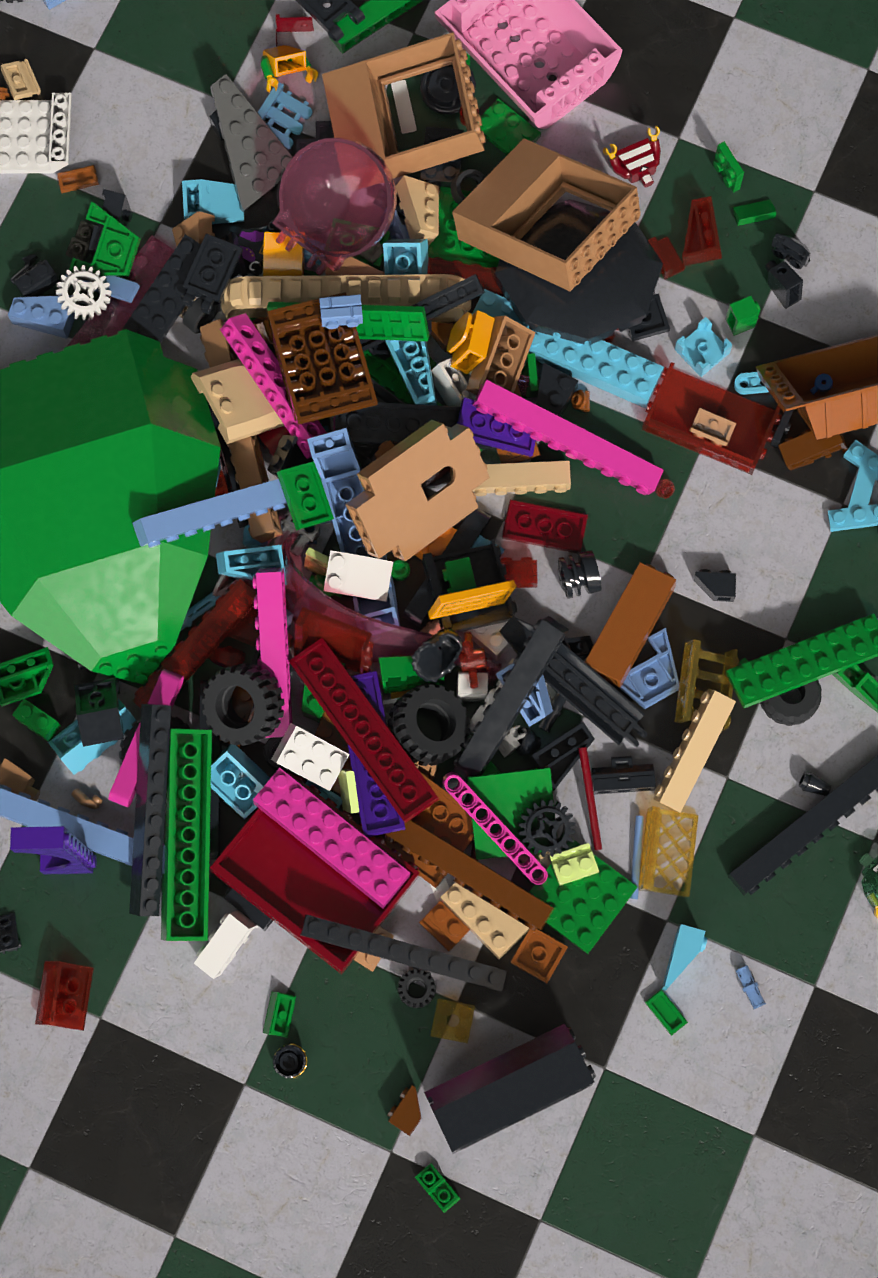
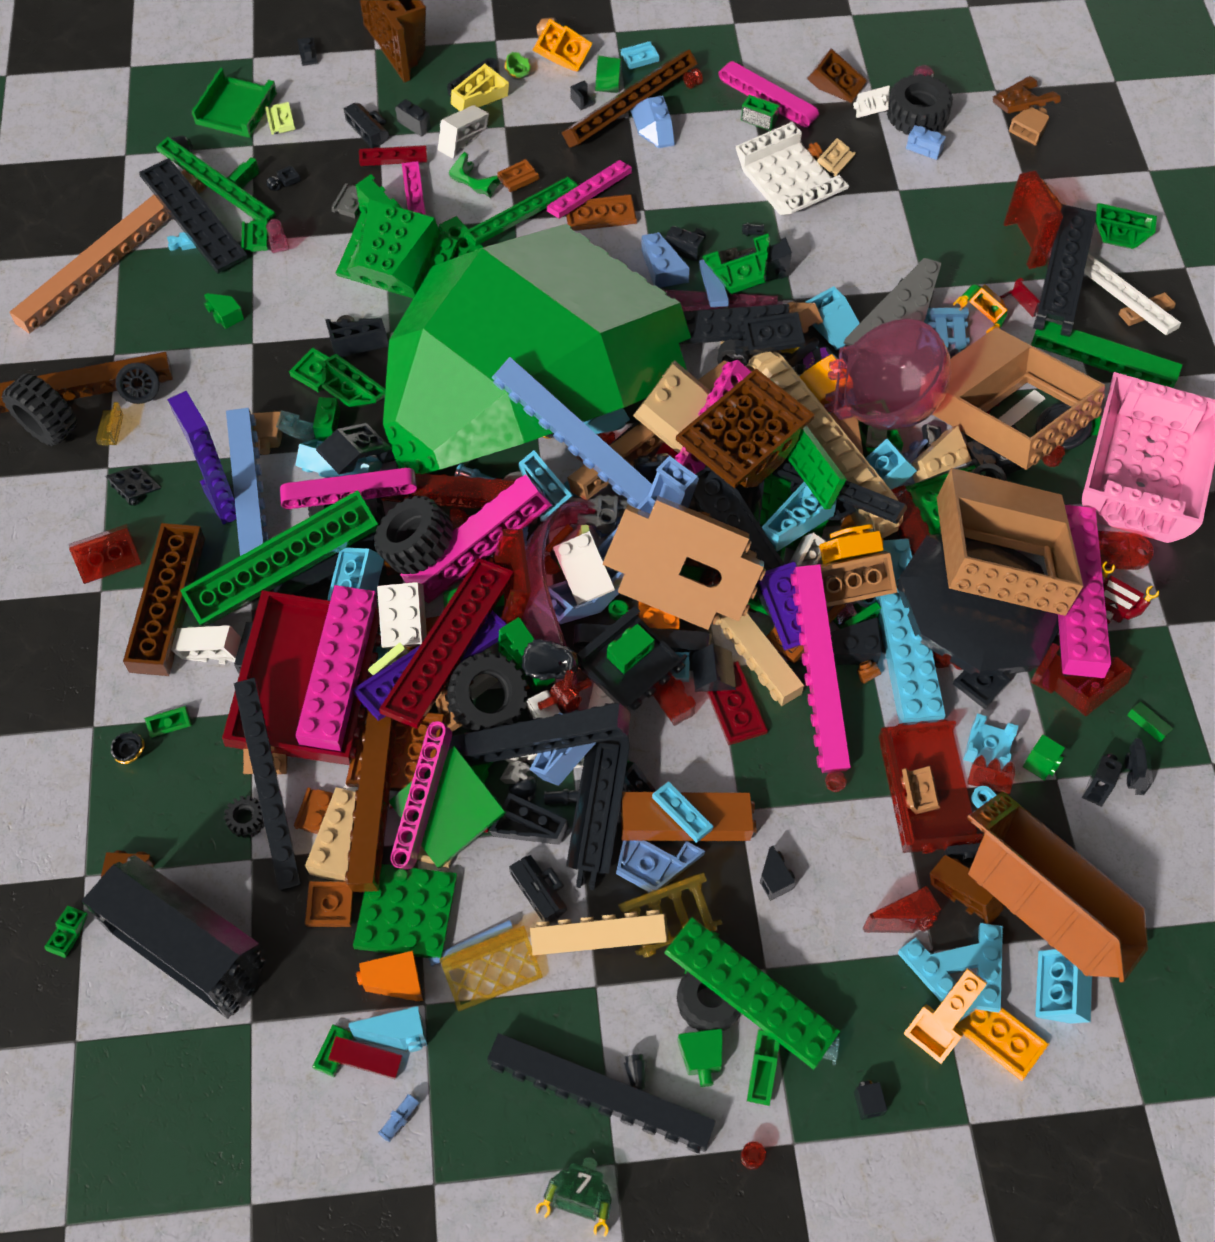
camera: 55 degrees right, 15 degrees down
(28, 752) = (291, 425): none -> clear light blue slope
(57, 210) = (751, 229): none -> black pin
(76, 280) = (687, 261): white gear -> none
(77, 179) = (785, 228): dark orange tile -> none
(84, 800) = (282, 479): medium nougat arm -> none
(150, 810) = (284, 519): black brick -> none
(152, 960) = (161, 601): none -> reddish brown brick
(305, 495) = (624, 486): green plate -> none
(341, 311) = (793, 415): medium blue brick -> none
(458, 1033) = (239, 870): clear yellow piece -> none
(471, 599) = (614, 657): light orange tile -> none
(506, 128) = (1065, 481): green plate -> none
(508, 525) = (713, 669): none -> black slope
(539, 831) = (442, 846): black gear -> none
(574, 864) = (430, 887): yellowish green plate -> none
(579, 574) = (704, 747): black wheel -> none
(590, 798) = (504, 864): dark red piece -> none
(591, 127) = (1122, 550): none -> clear red plate
(632, 625) = (682, 812): none -> medium azure plate
(632, 934) = (391, 976): none -> orange slope
(661, 210) = (1084, 628): none -> dark pink brick
(688, 989) = (365, 1057): none -> dark red tile
(728, 167) = (1171, 672): green plate -> none
(732, 365) = (991, 775): none -> clear red plate
(810, 498) = (905, 915): none -> clear red slope
(818, 386) = (1037, 858): blue piece -> none
(830, 727) = (702, 1054): none -> green torso

